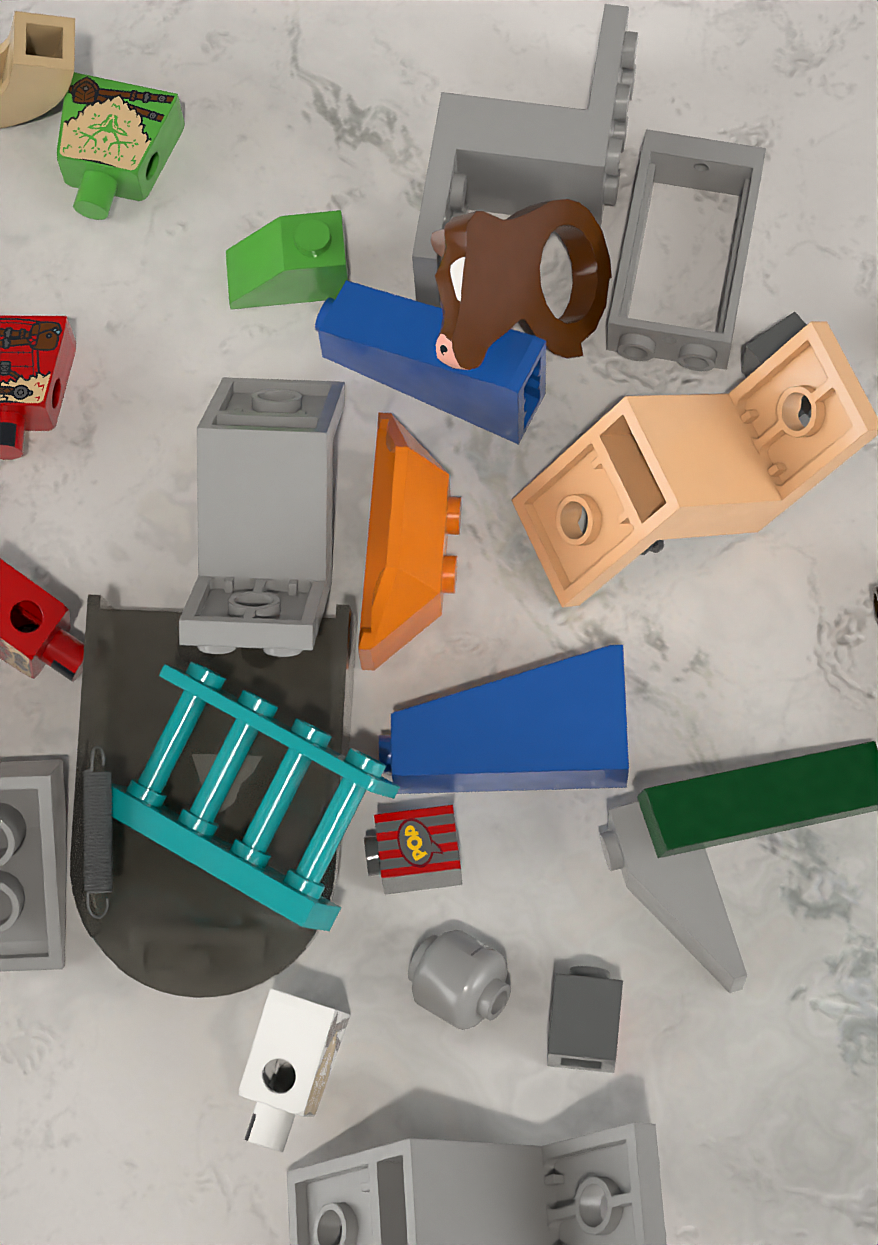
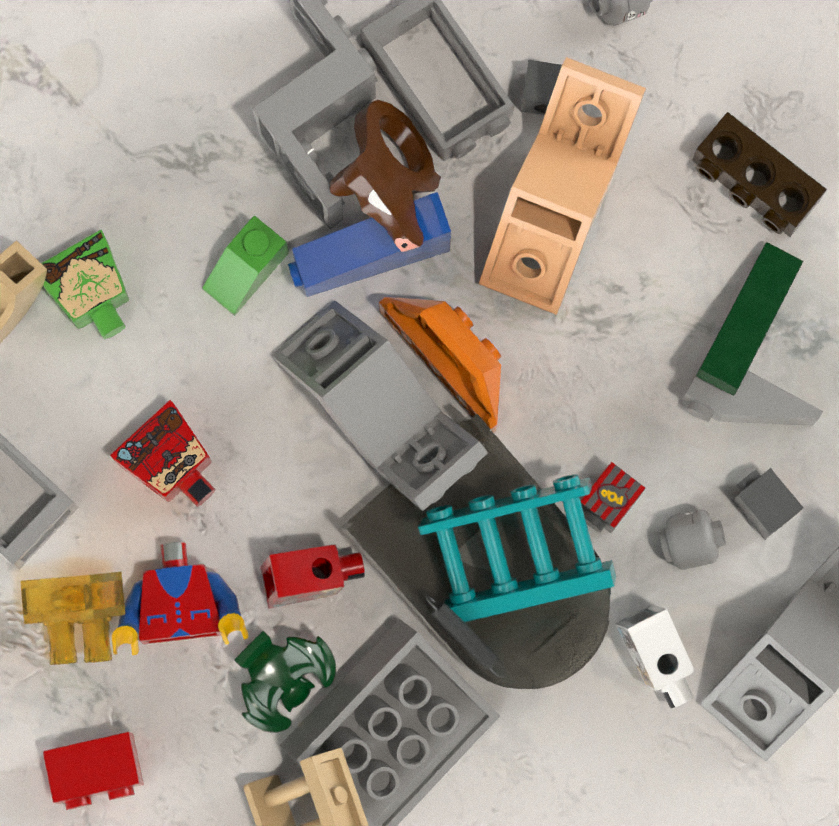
camera: 50 degrees left, 10 degrees up
(518, 733) = (606, 390): blue slope -> none

